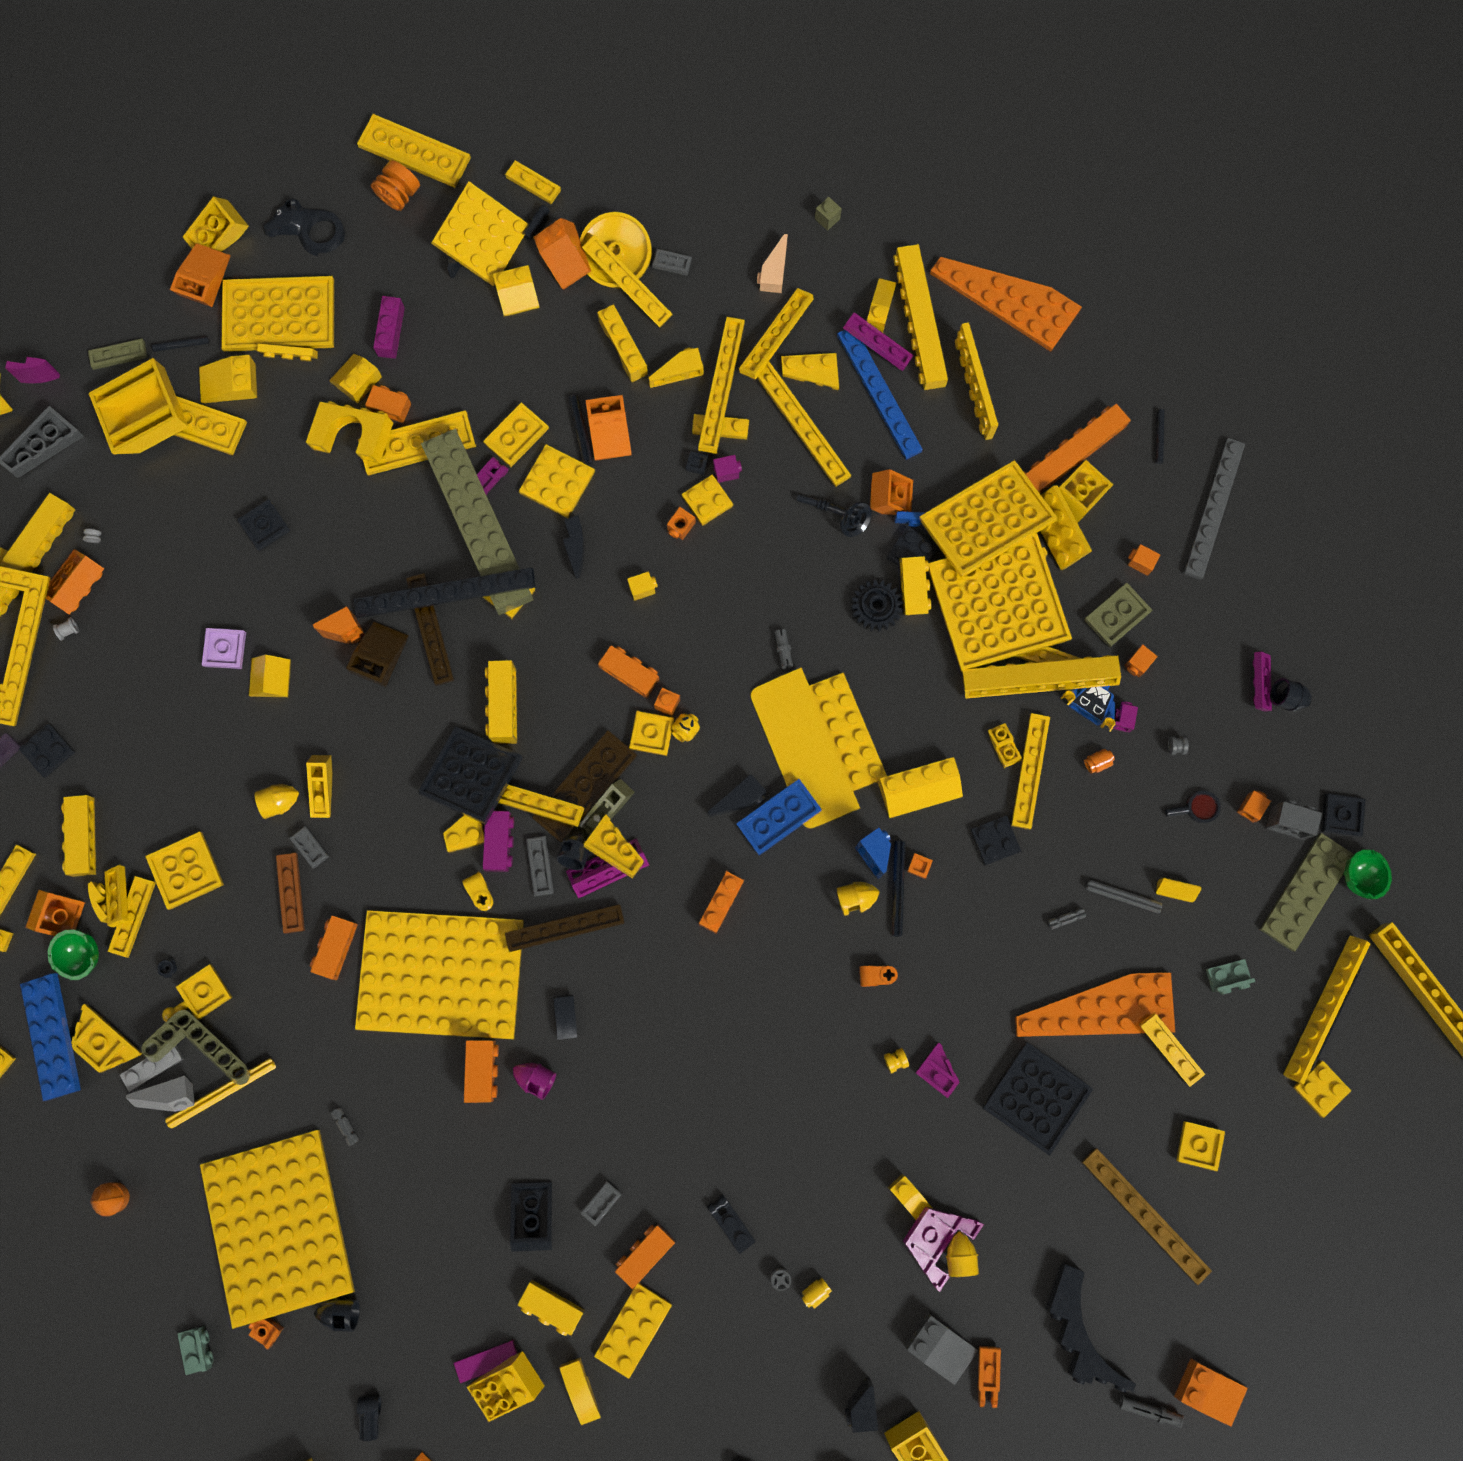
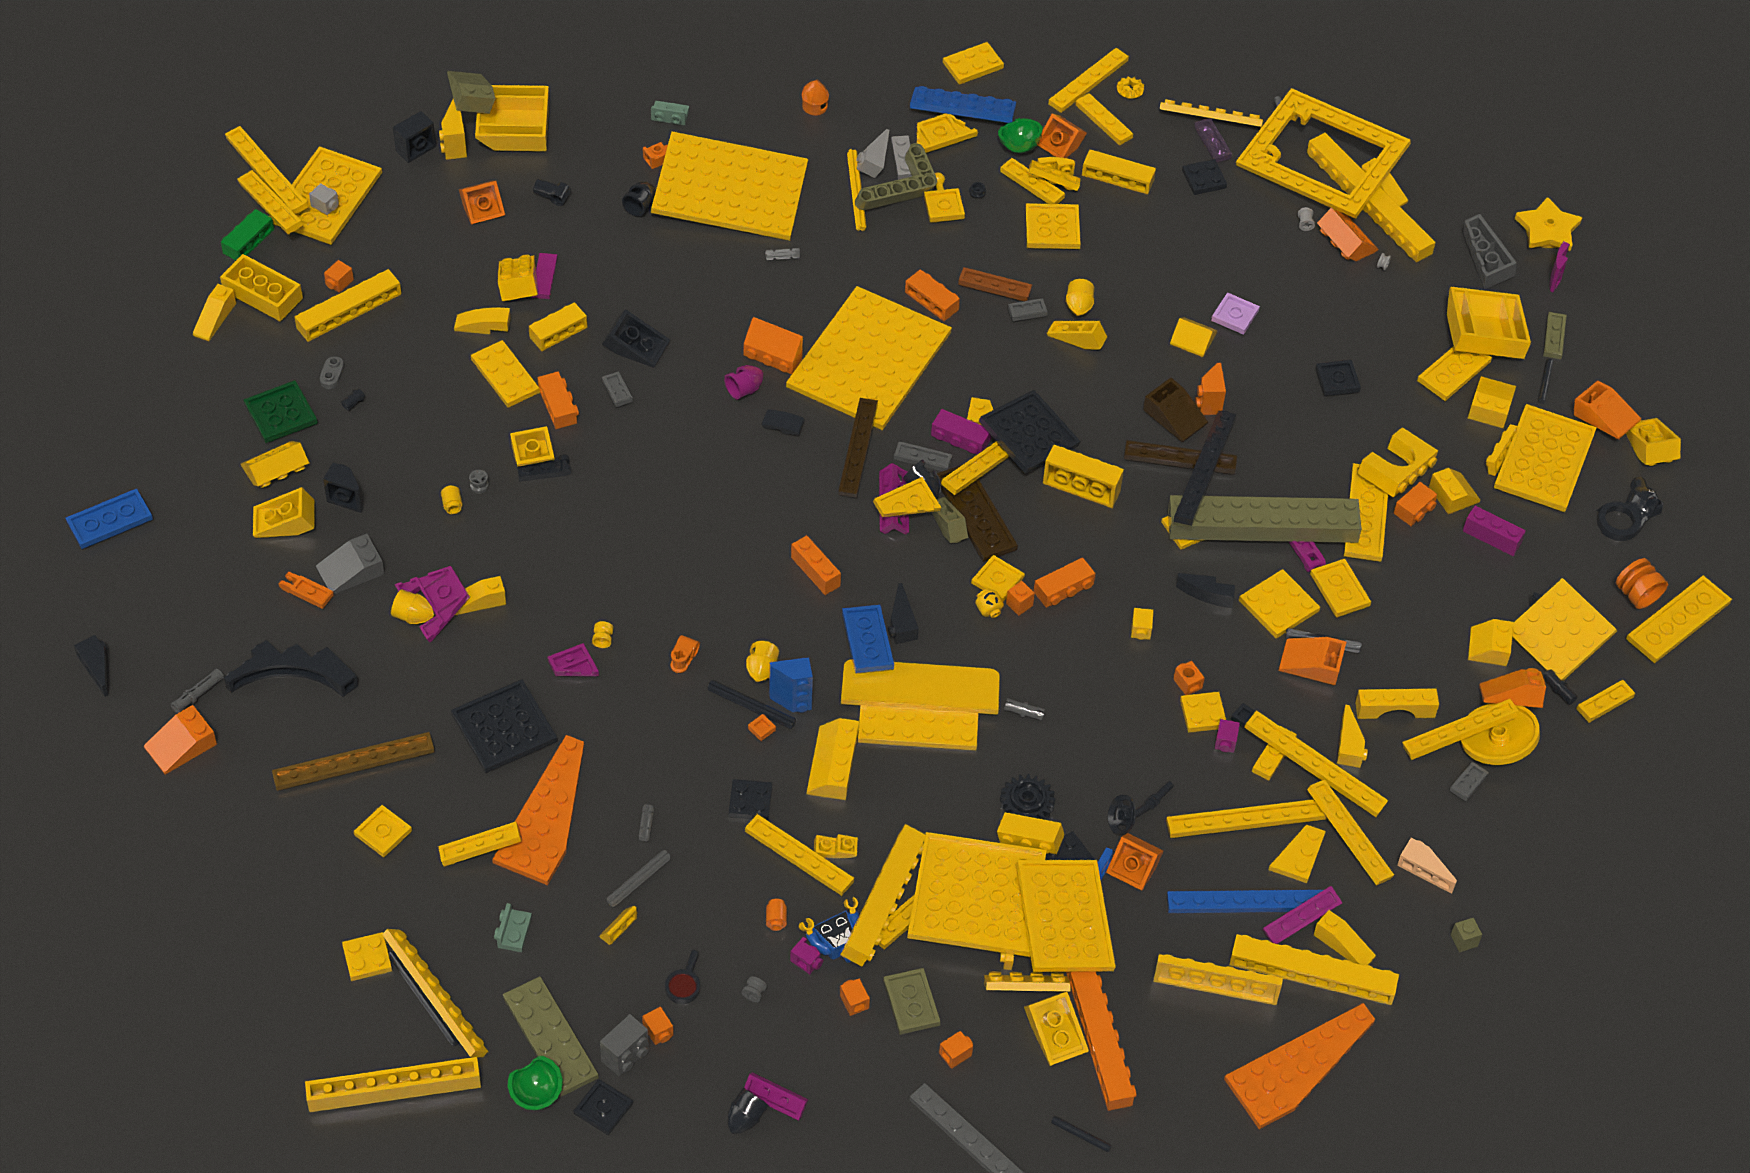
camera: 115 degrees right, 25 degrees down
(477, 888) = (926, 404): yellow piece -> none
(723, 1244) = (531, 446): none -> yellow slope

